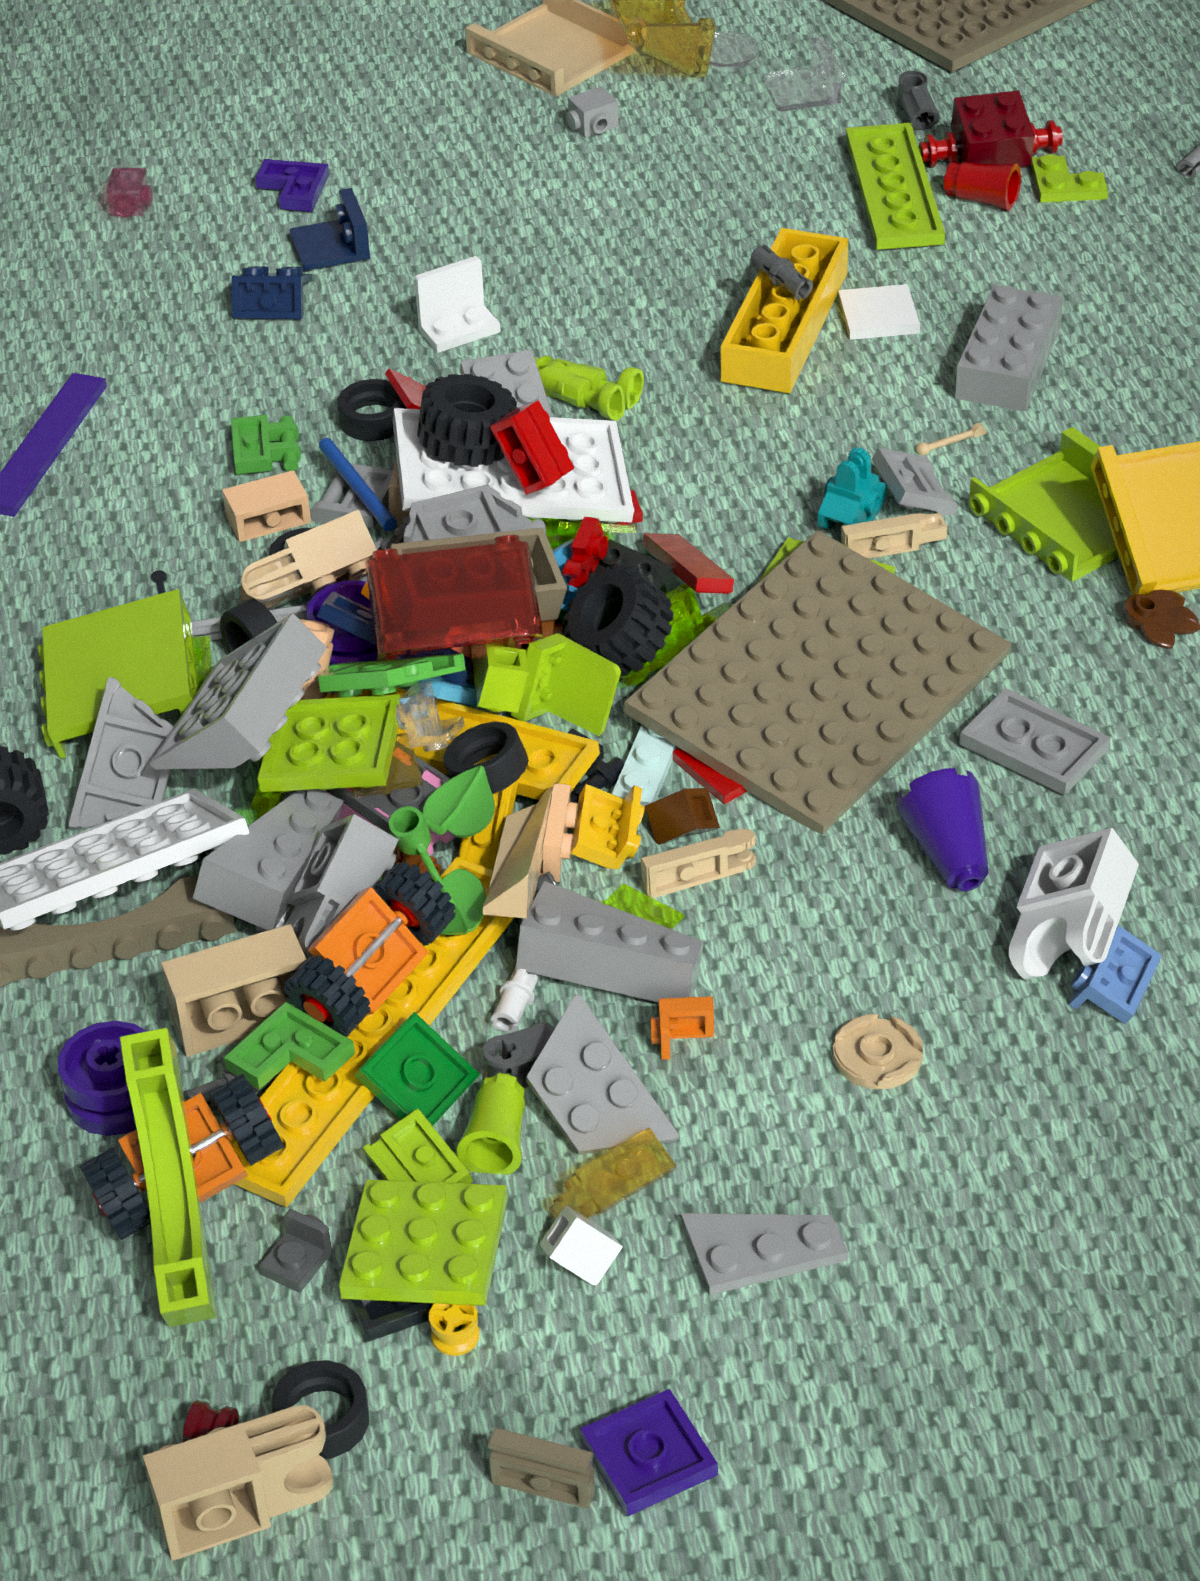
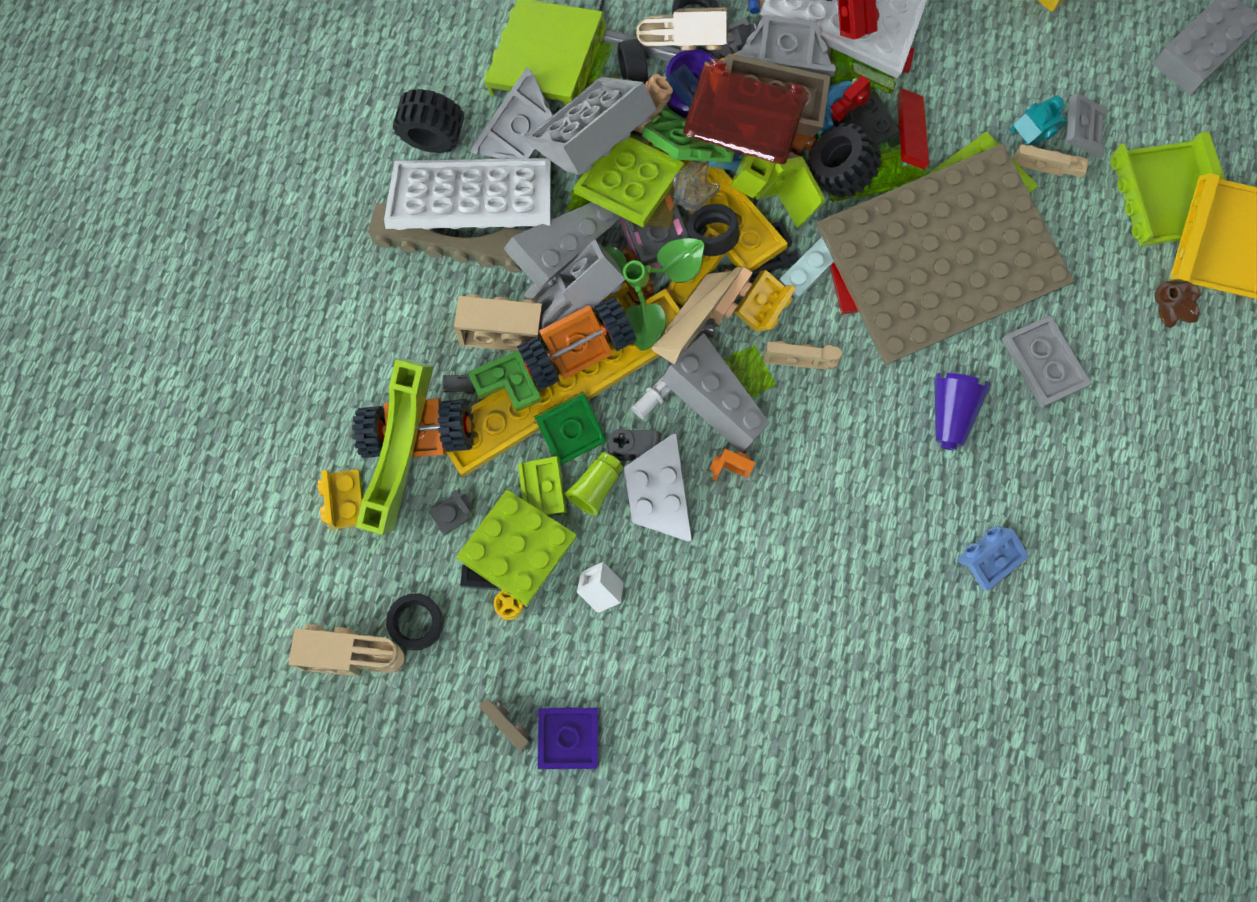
camera: 20 degrees right, 30 degrees up
(95, 1078) = (406, 338): dark purple wheel -> none
(114, 1309) = (341, 498): none -> yellow bracket
(203, 1419) = (353, 604): dark red wheel -> none
(615, 1176) = (641, 551): clear yellow hinge -> none
(682, 814) = (811, 316): reddish brown panel -> none
(760, 1247) = (696, 636): light grey wing -> none
(877, 1064) = (828, 545): tan tile -> none
(975, 431) = (1109, 96): tan hinge -> none
(1072, 902) = (996, 501): white brick -> none

